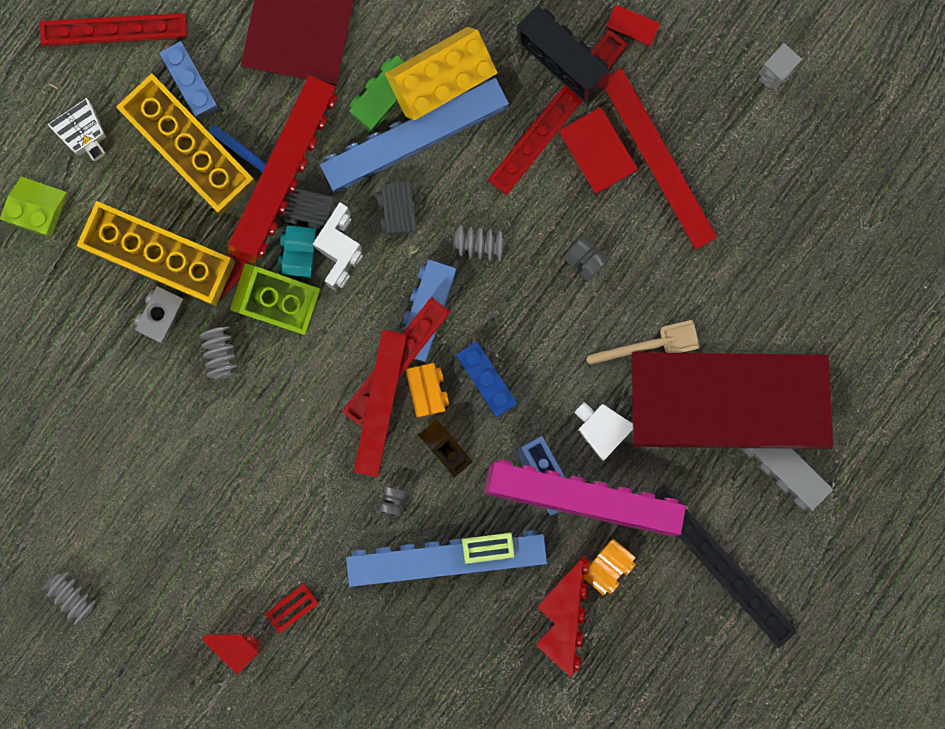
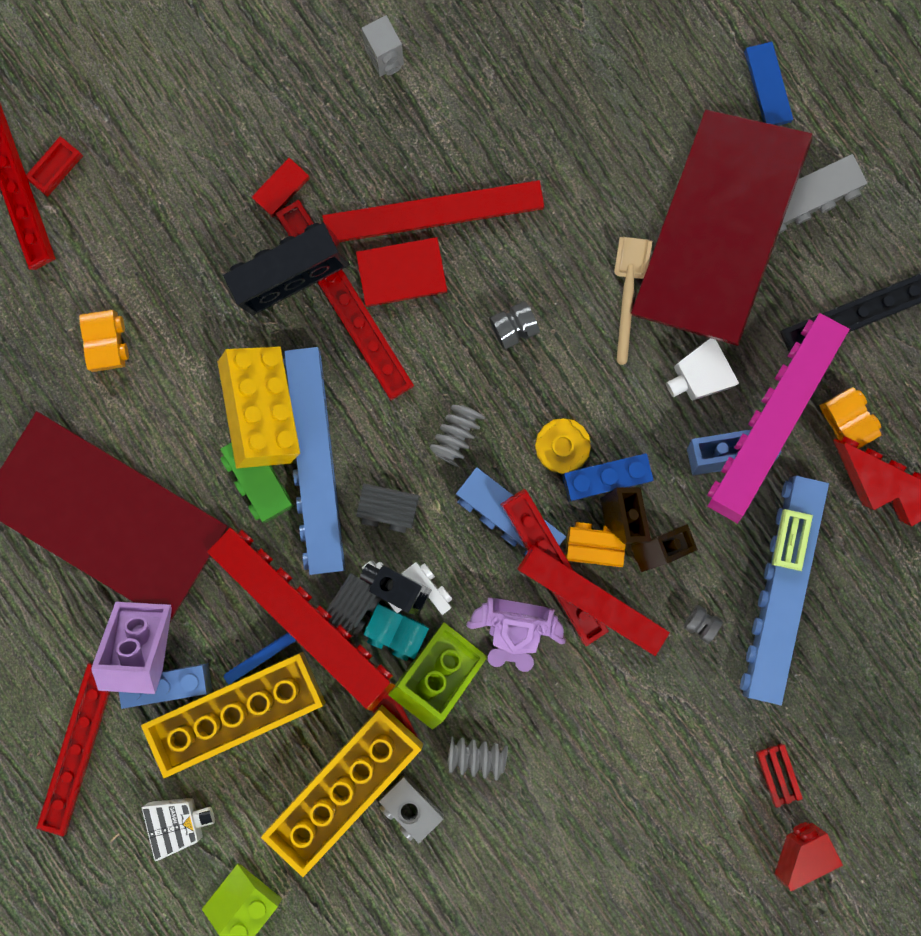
camera: 75 degrees left, 0 degrees up
(210, 44) = (132, 648): none -> lavender slope
(332, 235) = (405, 593): none -> black torso
(334, 348) = (516, 630): none -> lavender piece
(460, 405) = (626, 515): none -> dark brown slope
(500, 335) = (562, 445): none -> yellow tile
(870, 401) = (768, 84): none -> blue tile

